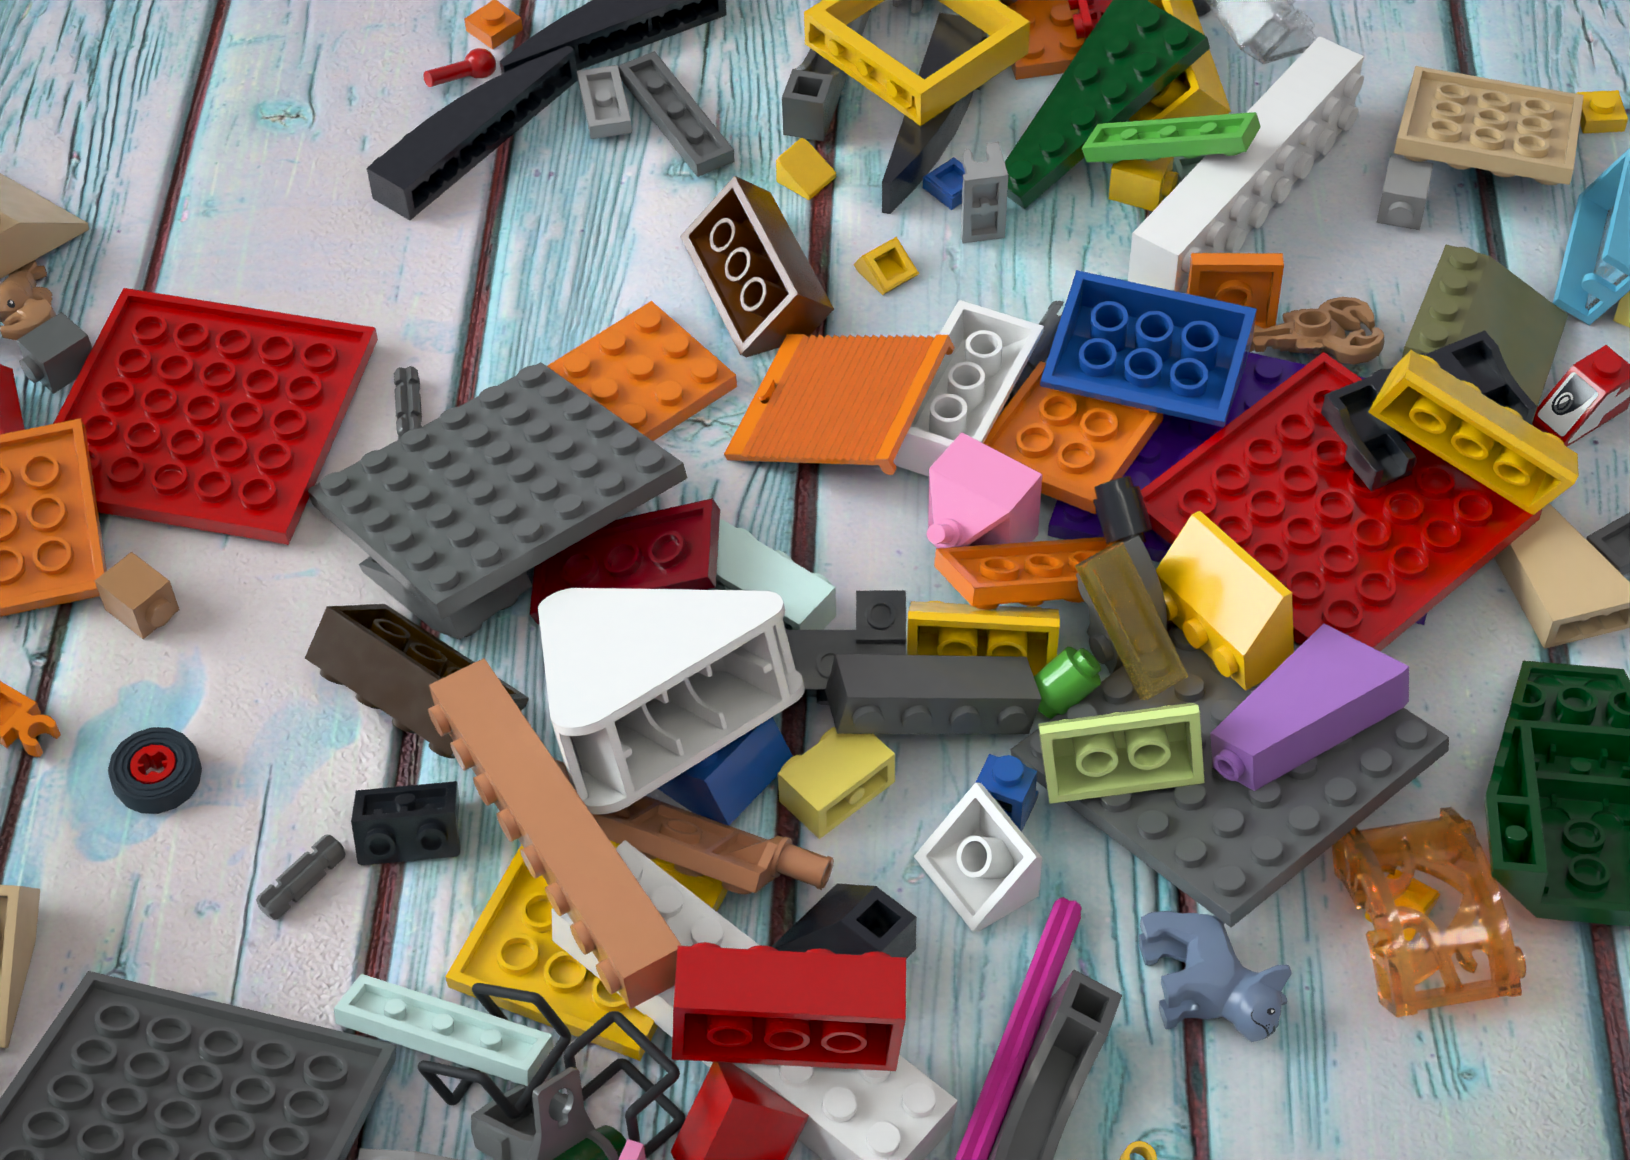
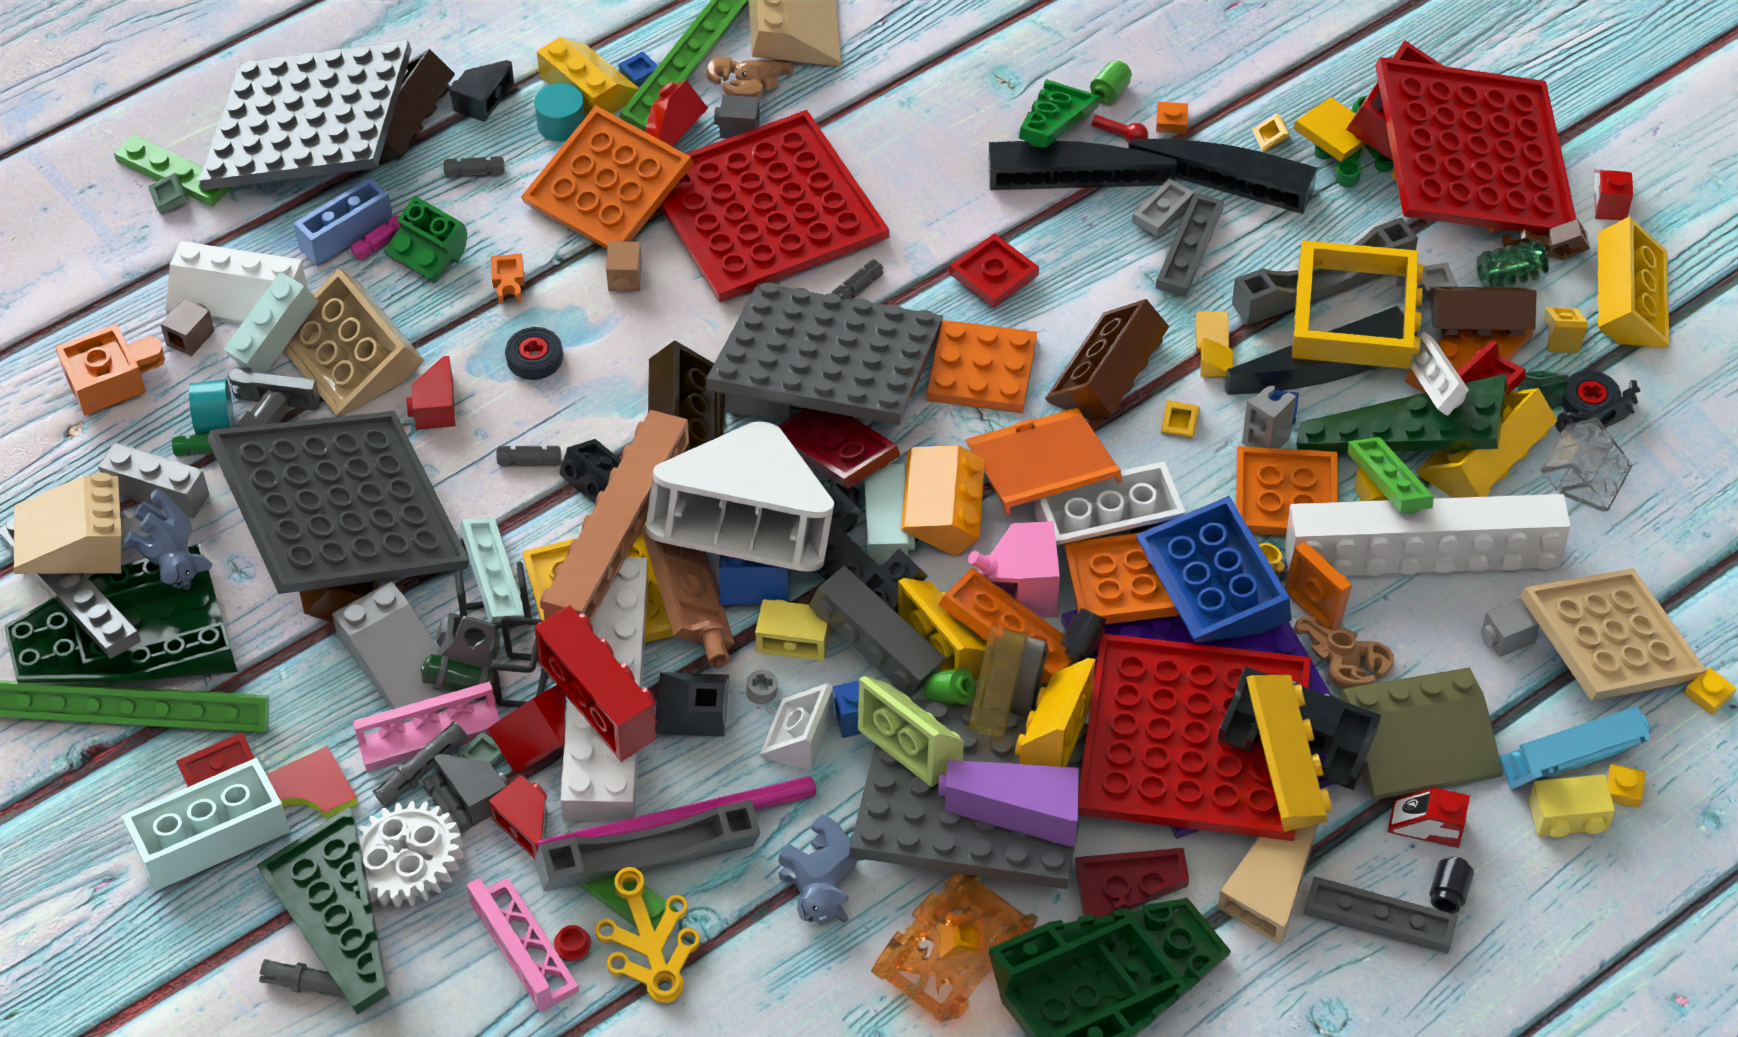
camera: 50 degrees right, 0 degrees up
(109, 916) = (433, 397): none -> red slope
(390, 94) = (1056, 112): none -> green wing
(397, 34) = (1111, 81): none -> bright green brick
(529, 282) = (994, 270): none -> red plate
(804, 513) = (943, 496): none -> light orange slope
(840, 192) = (1215, 359): none -> yellow slope
(886, 876) = (753, 691): none -> light grey bush
(1058, 234) = (1276, 478): none -> orange plate
(1086, 29) = (1438, 375): none -> white plate
(1460, 694) = (1128, 879): none -> dark red wing

